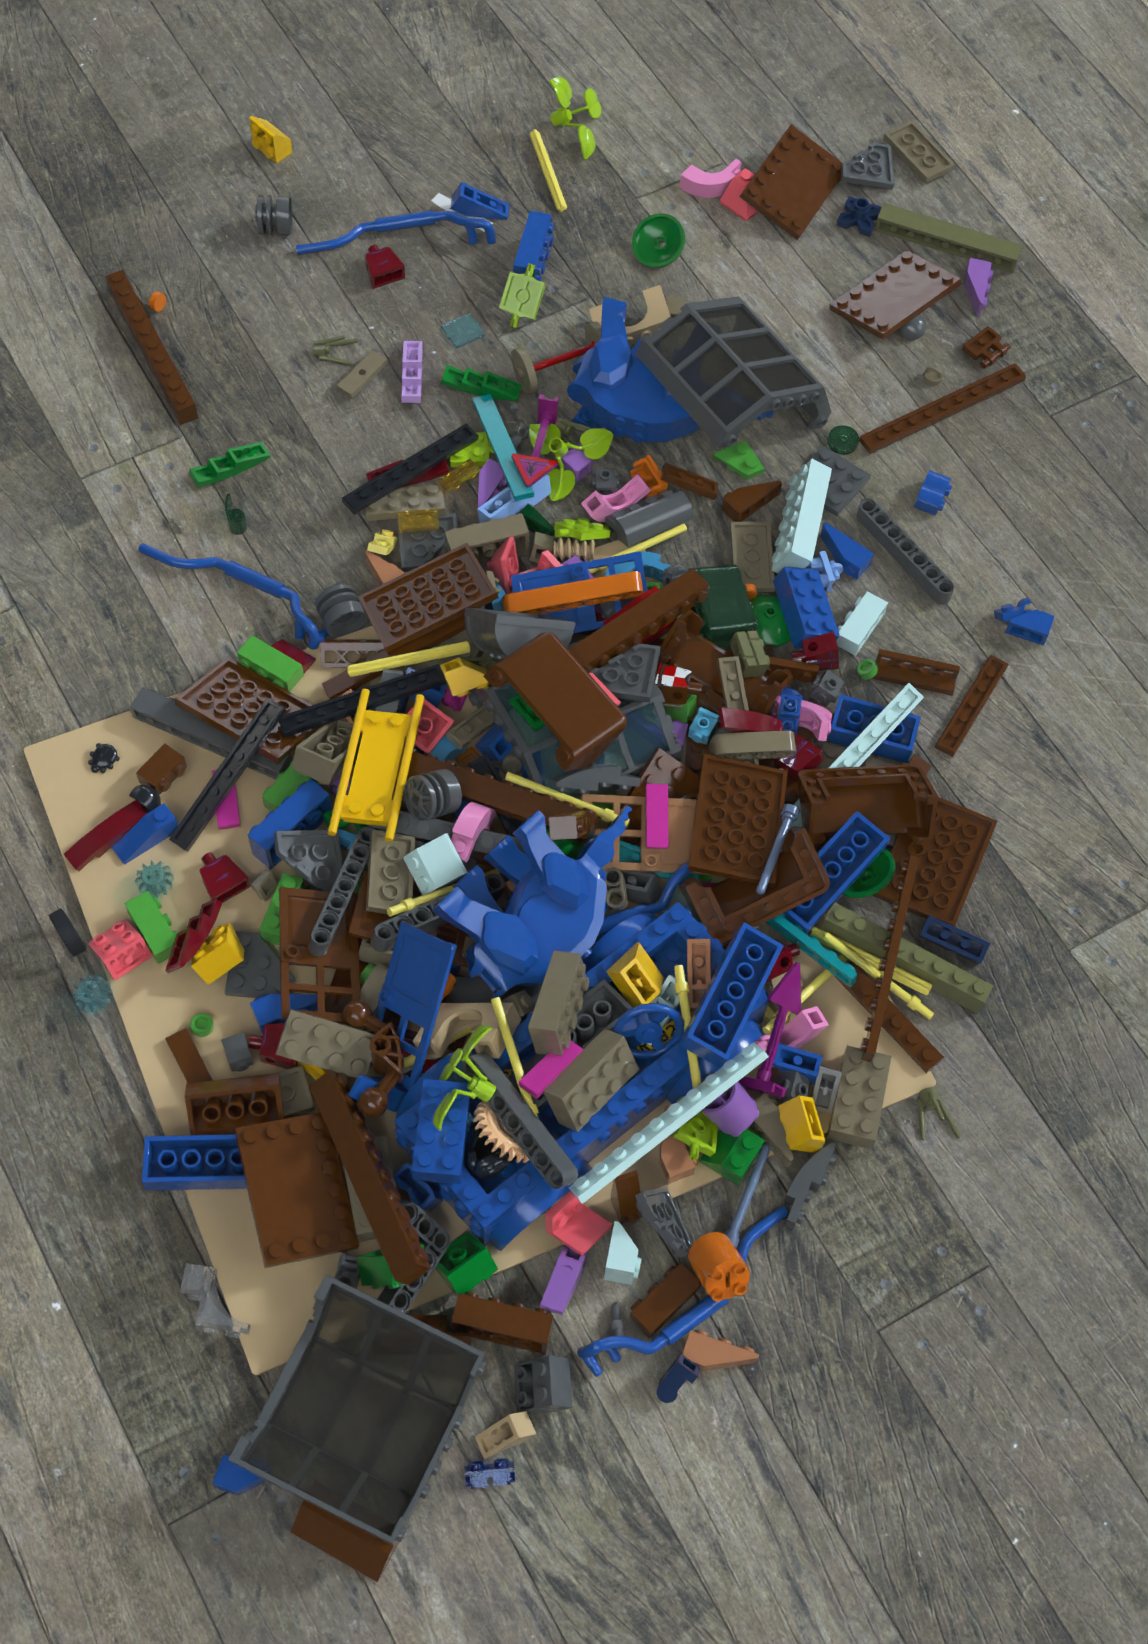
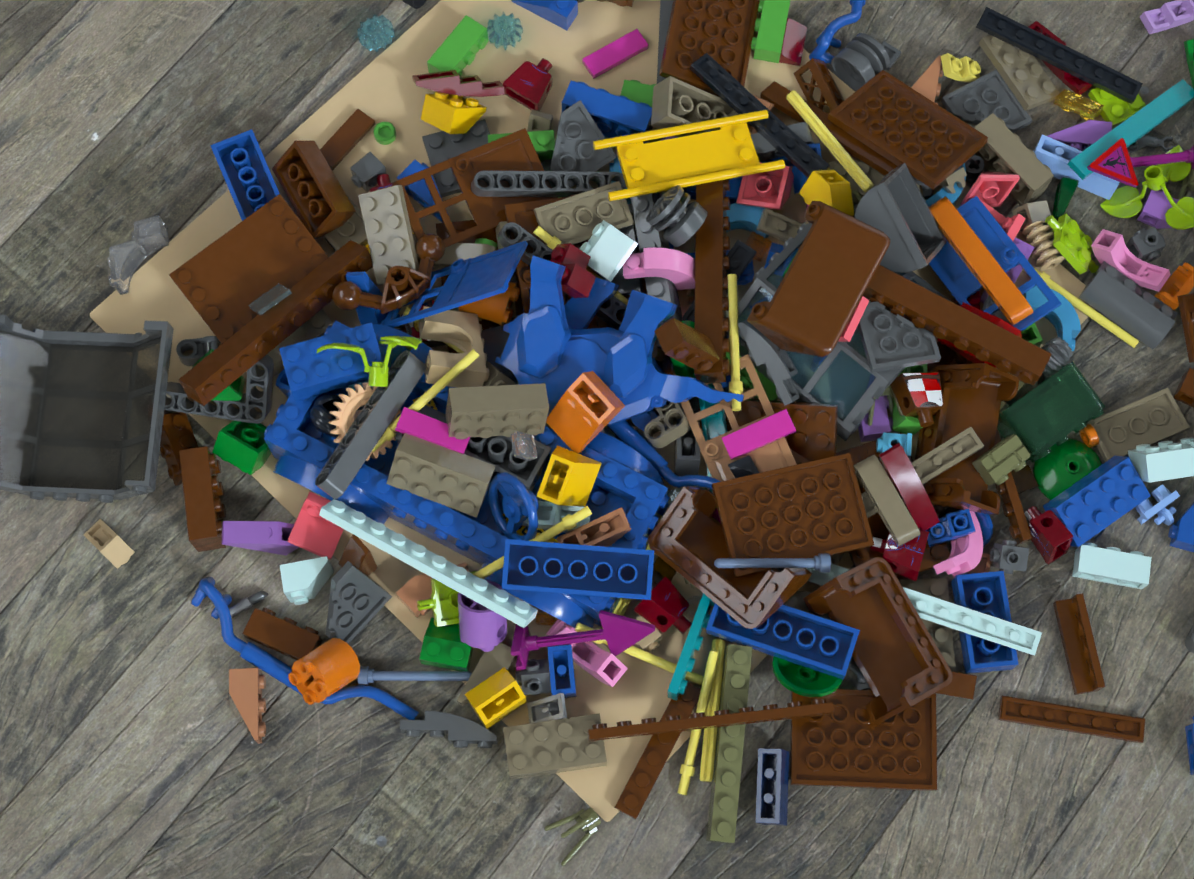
camera: 70 degrees right, 10 degrees up
(120, 949) = (424, 33): coral bracket -> none
(227, 774) = (631, 39): black tile -> none
(341, 1176) = (269, 299): none -> clear light blue piece
(418, 520) = (1001, 87): clear yellow plate -> none
(437, 889) = (575, 279): none -> dark red brick
(481, 1472) = (69, 534): clear blue hinge -> none
(543, 1385) = (164, 559): dark grey slope -> none
(591, 931) = (584, 411): none -> orange slope
(597, 997) = (524, 446): none -> clear plate
(680, 1371) = (213, 673): dark blue leg -> none
(681, 841) = (743, 467): none -> black slope
(867, 669) = (1058, 592): bright green tile -> none

